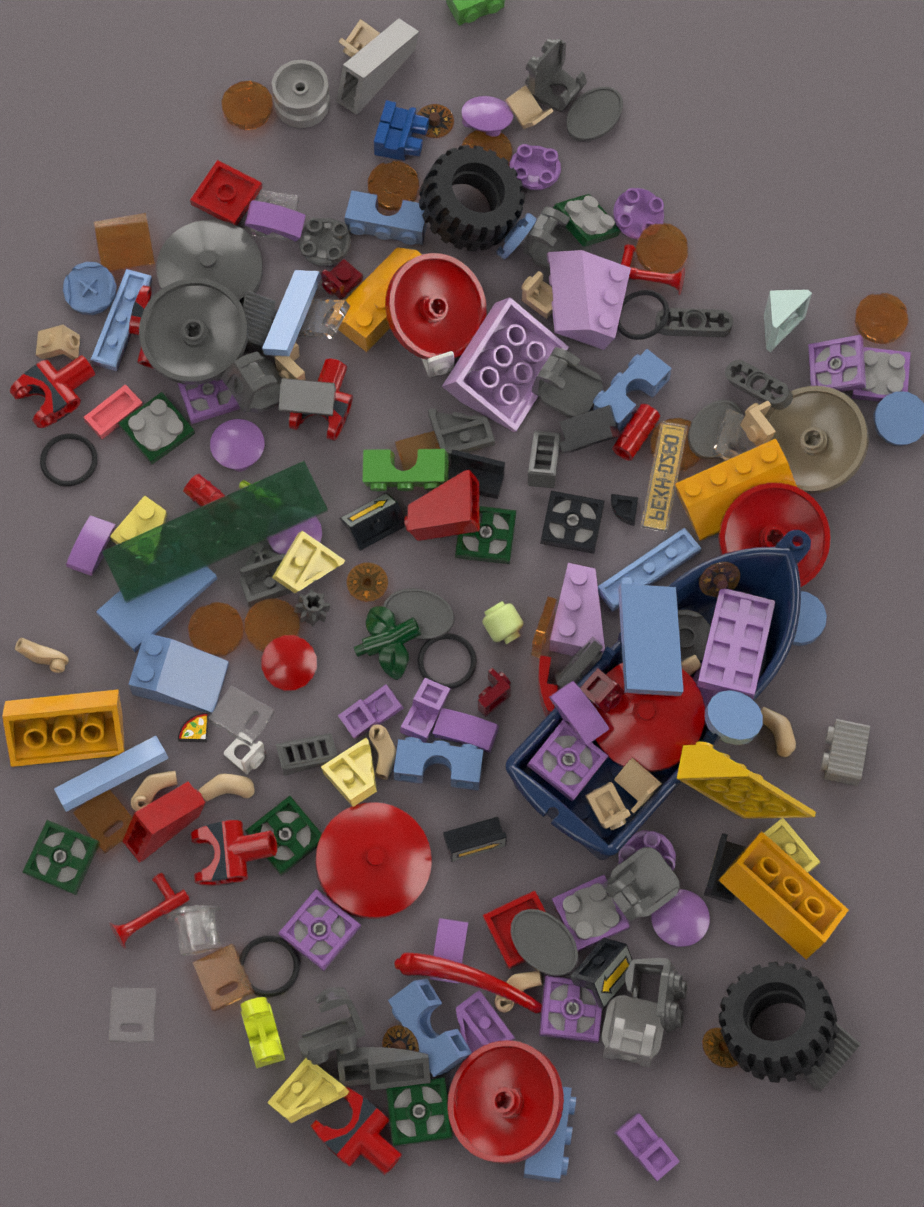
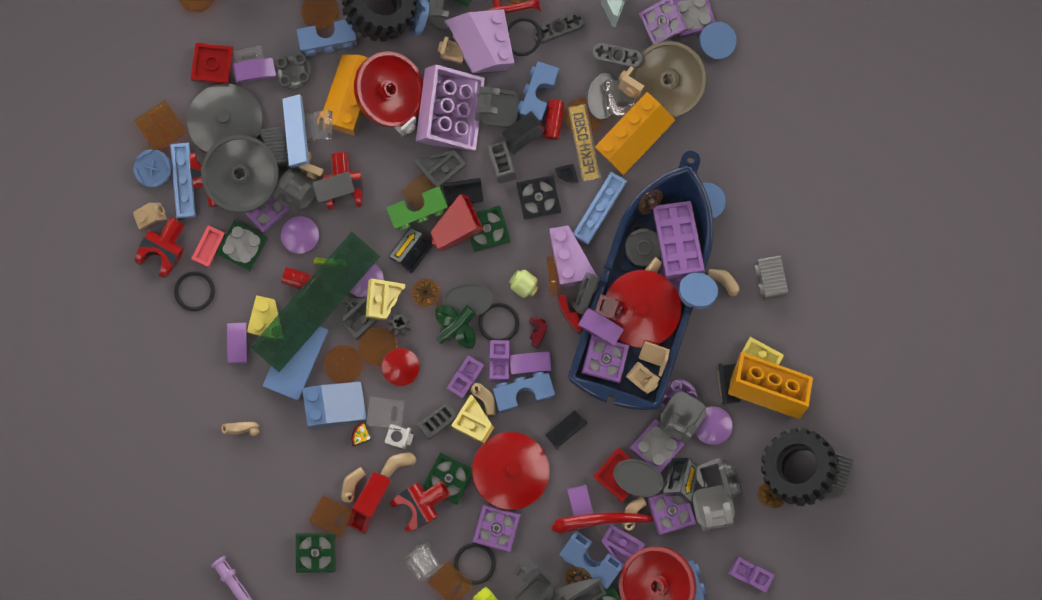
camera: 25 degrees left, 10 degrees up
(64, 728) = (277, 469): light orange slope -> none
(111, 773) = (321, 486): light blue tile -> none
(172, 902) = (397, 550): red piece -> none
(341, 279) = (315, 92): dark red bracket -> none
(650, 640) = (626, 262): medium blue tile -> none
(735, 786) = (716, 331): yellow slope -> none
(767, 514) = (662, 147): red dish -> none

